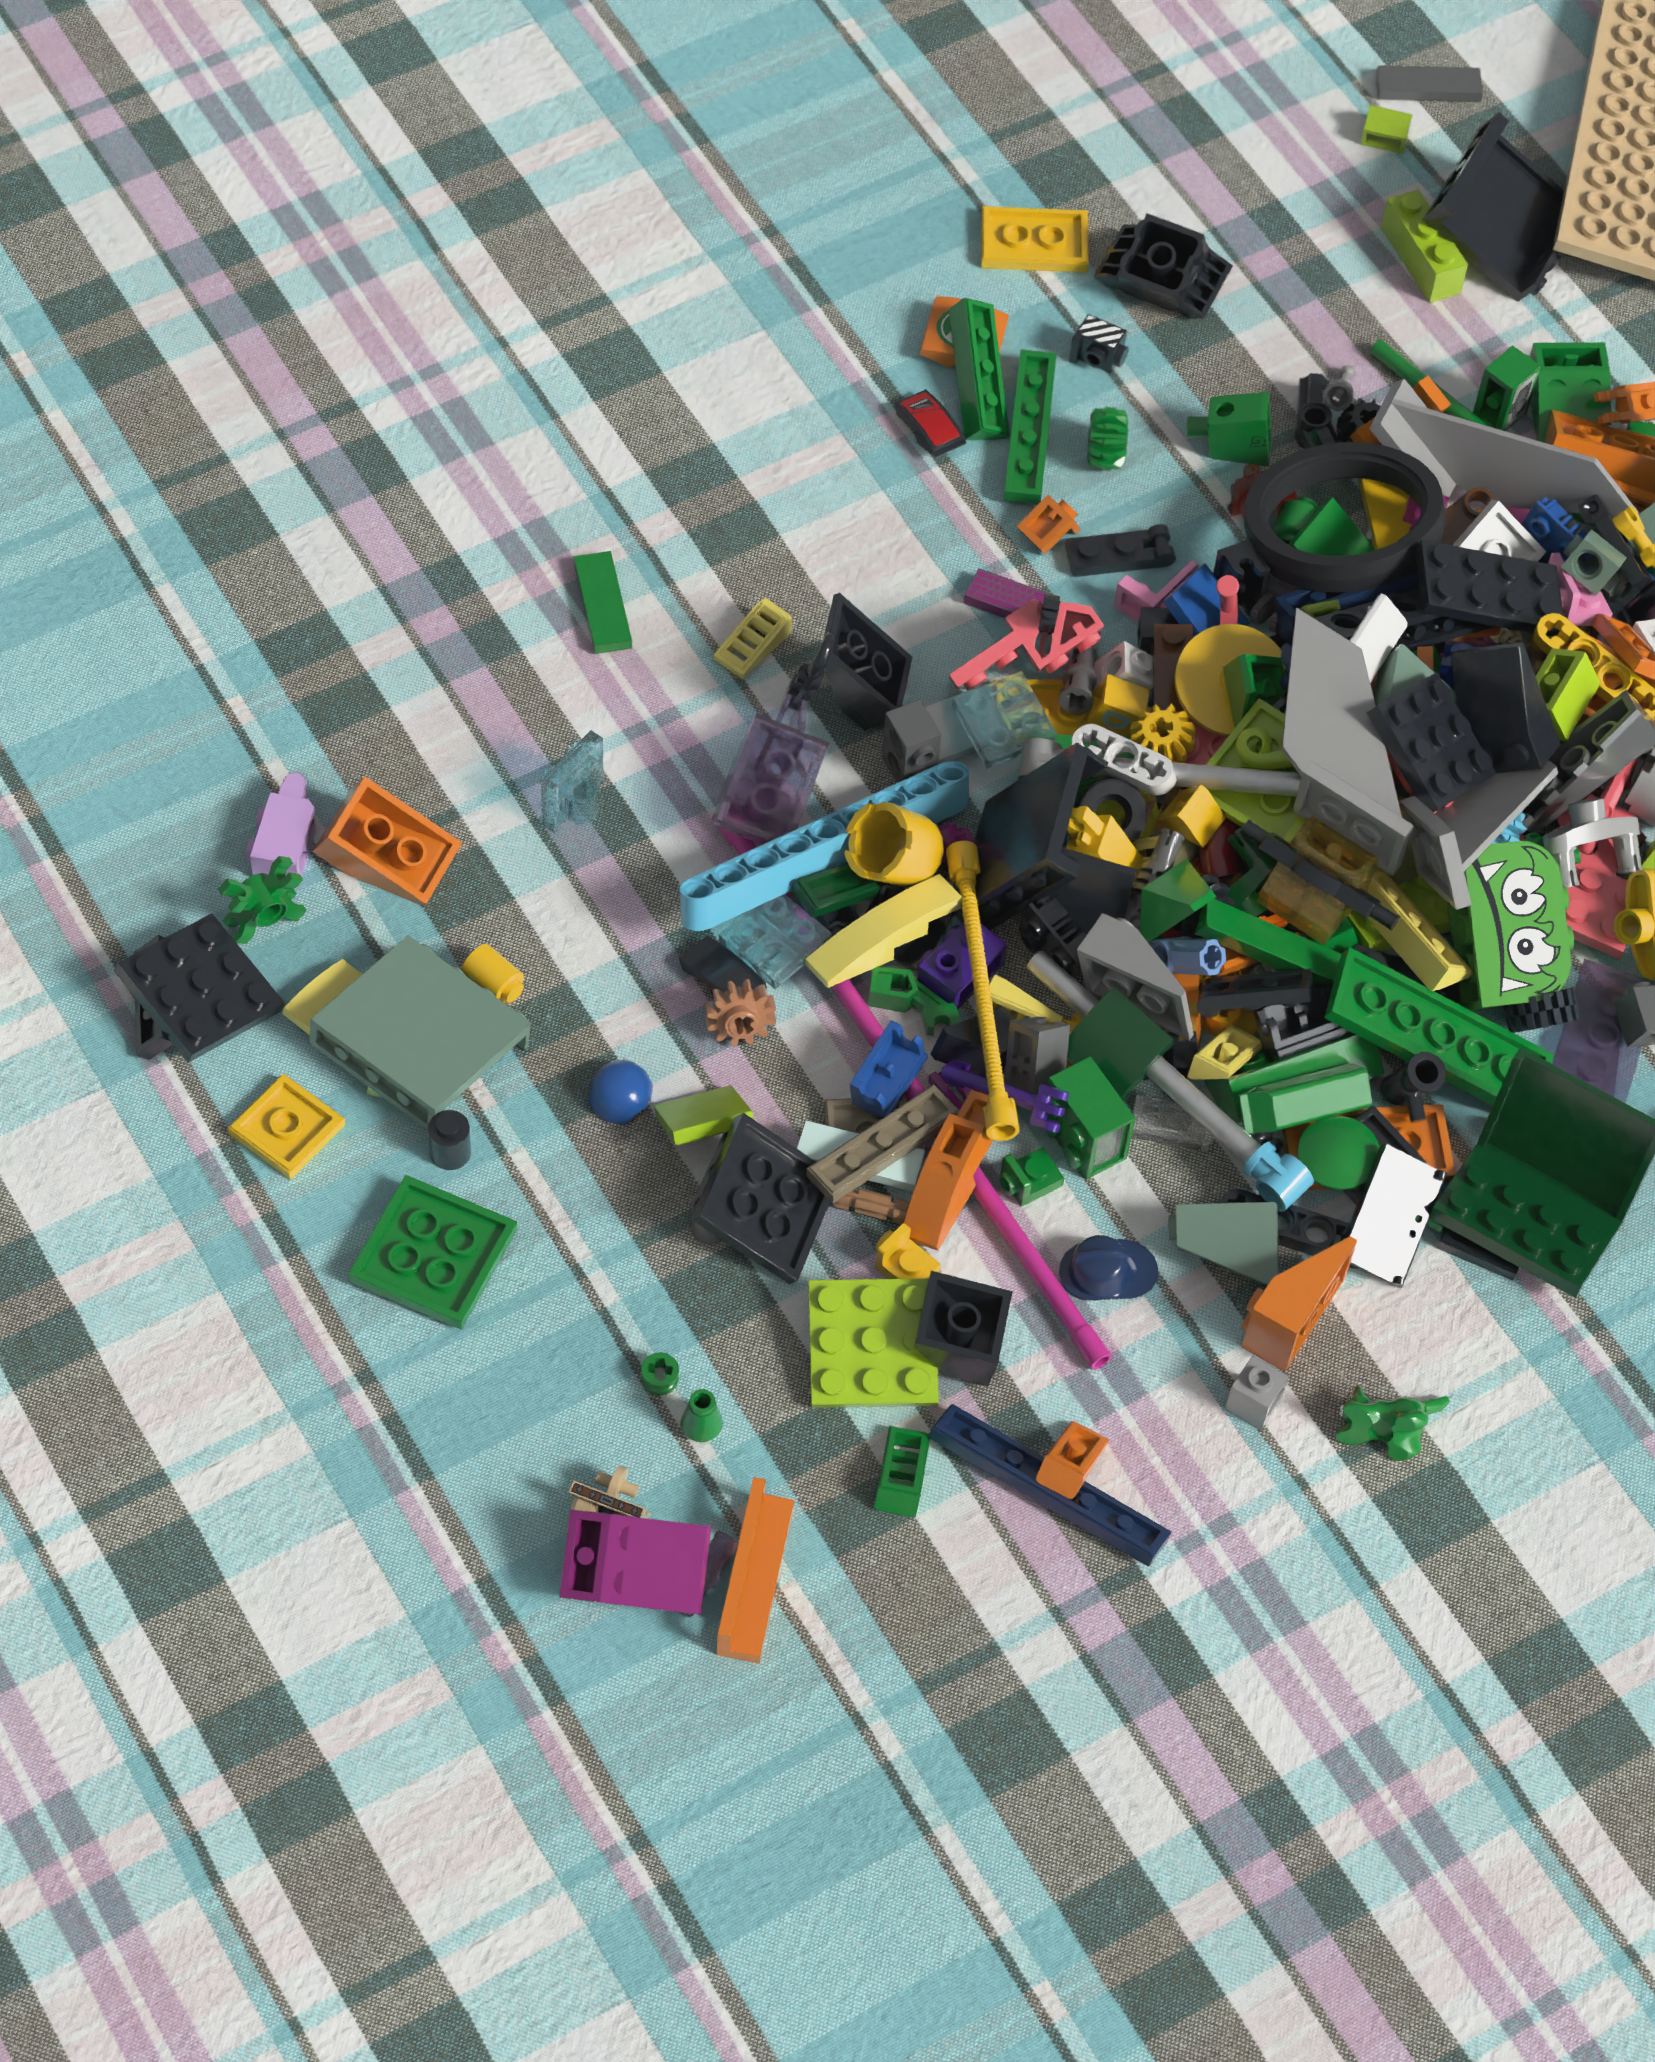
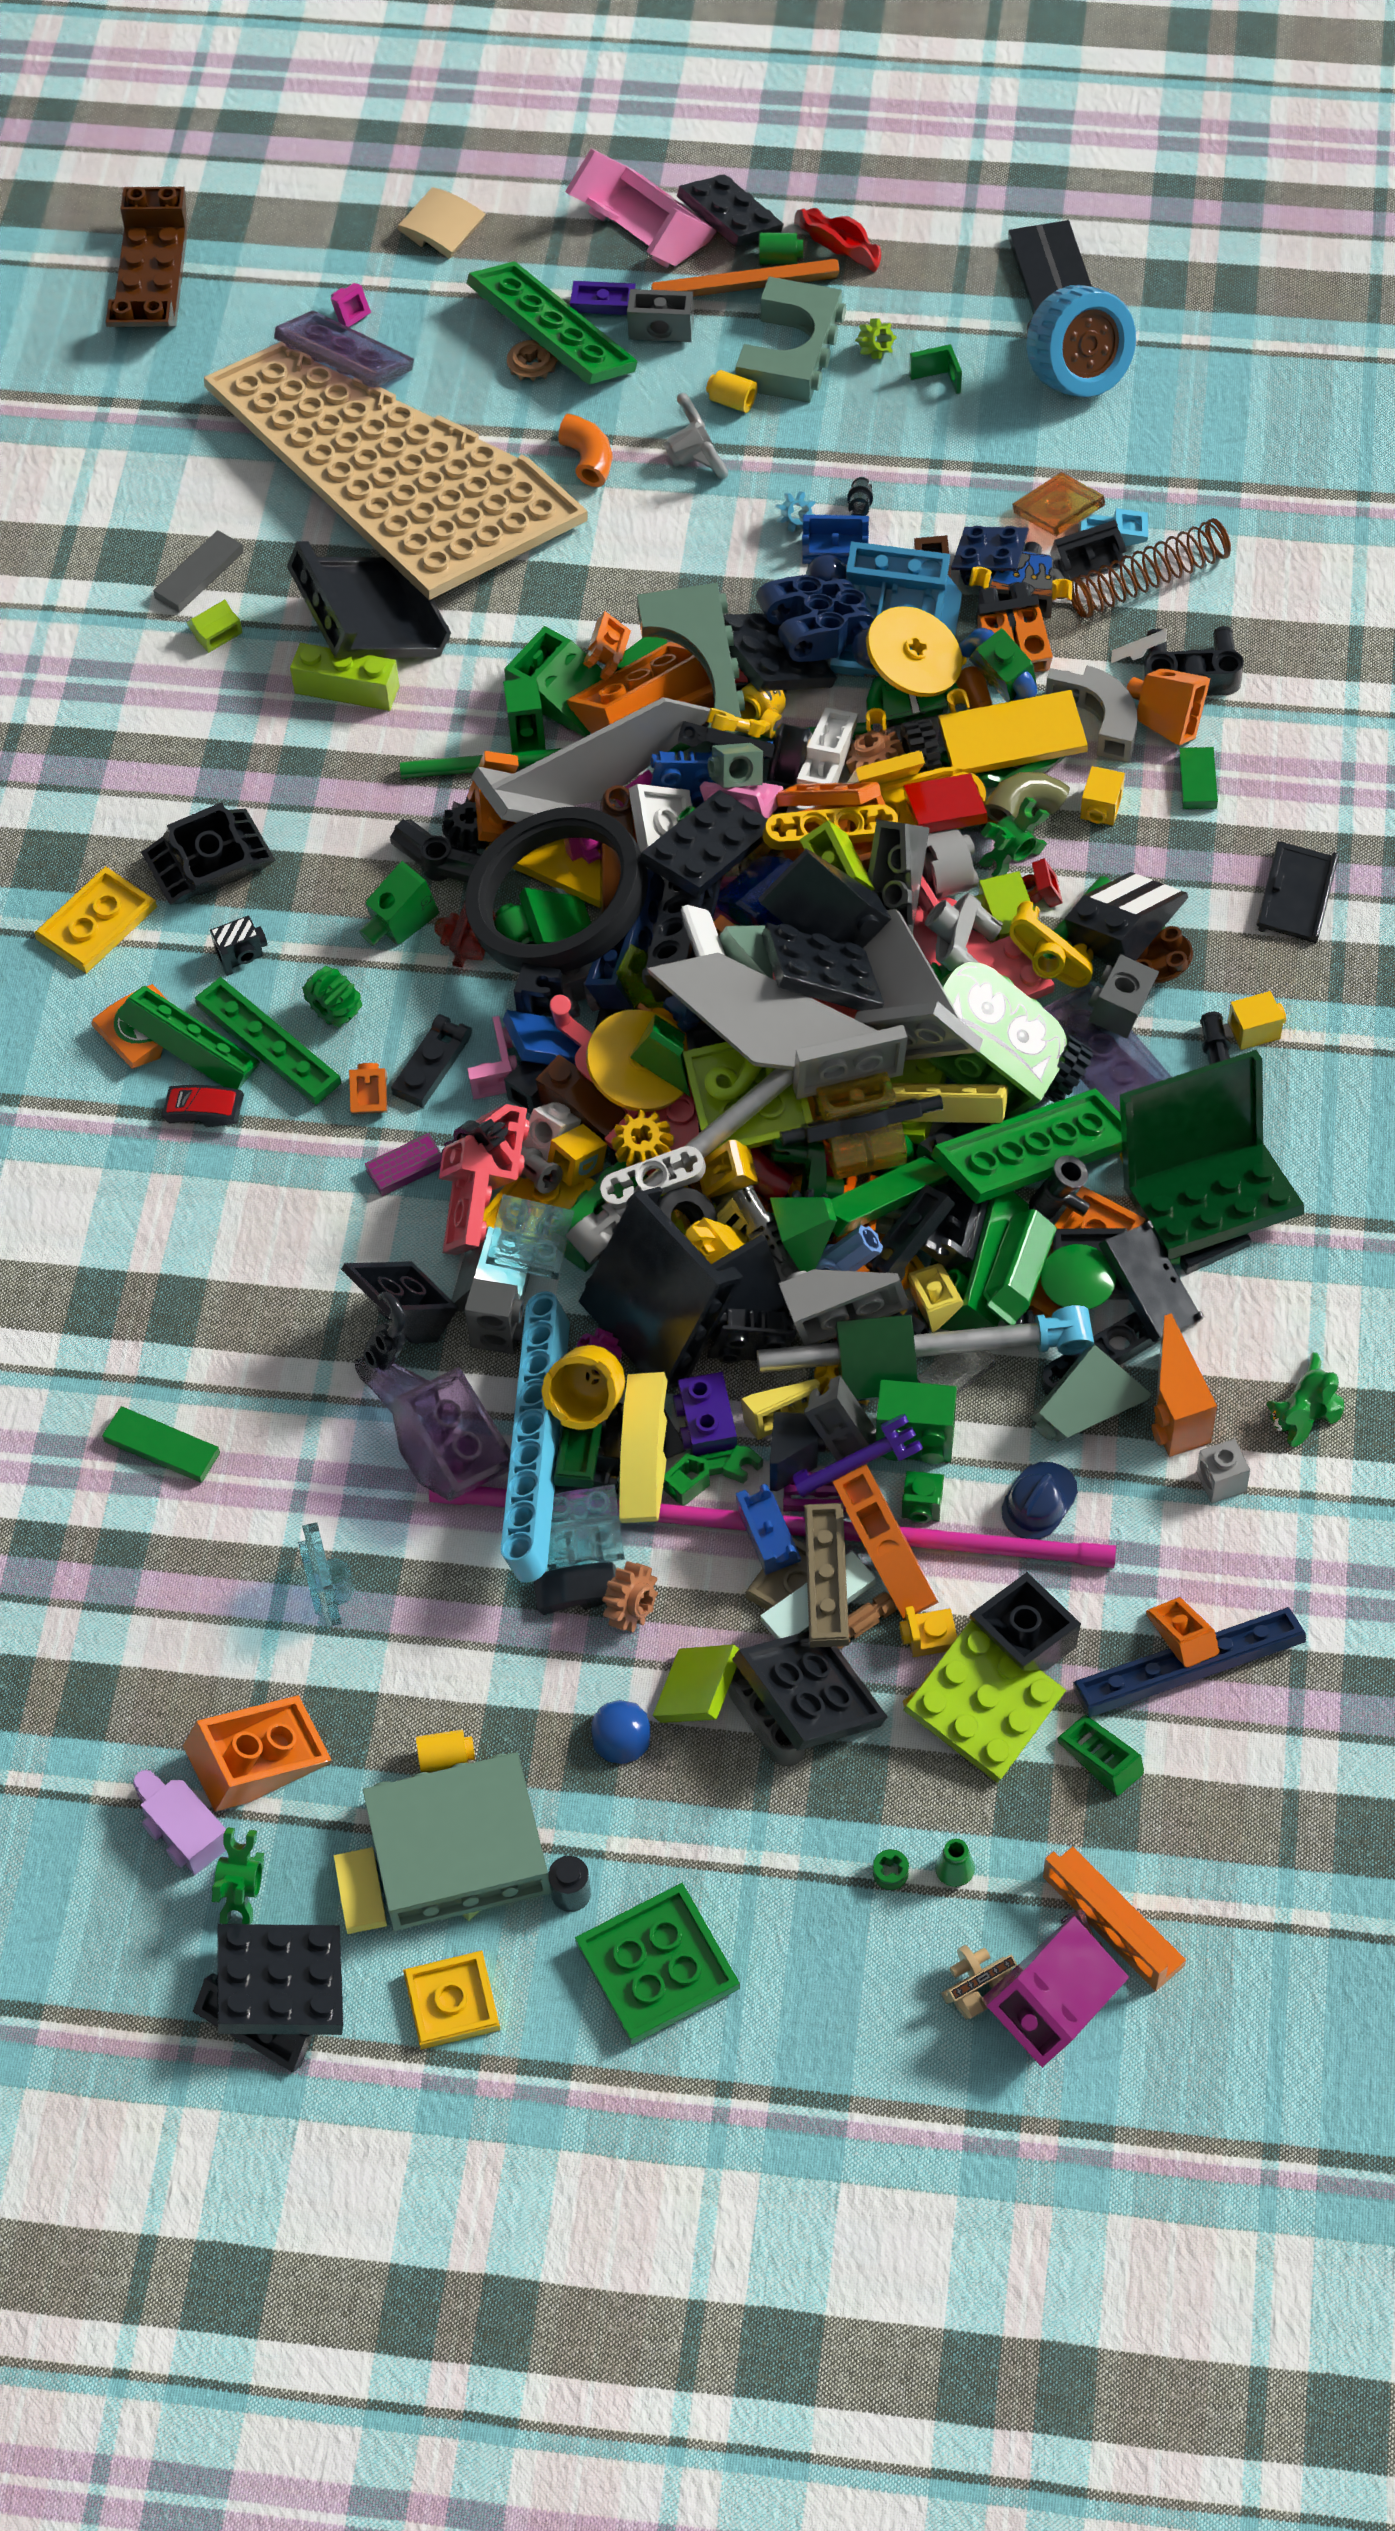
camera: 45 degrees left, 0 degrees up
(767, 619) = (285, 1338): light yellow slope -> none
(1000, 1112) = (877, 1472): yellow hose -> none
(1340, 389) = (428, 817): dark grey hinge -> none

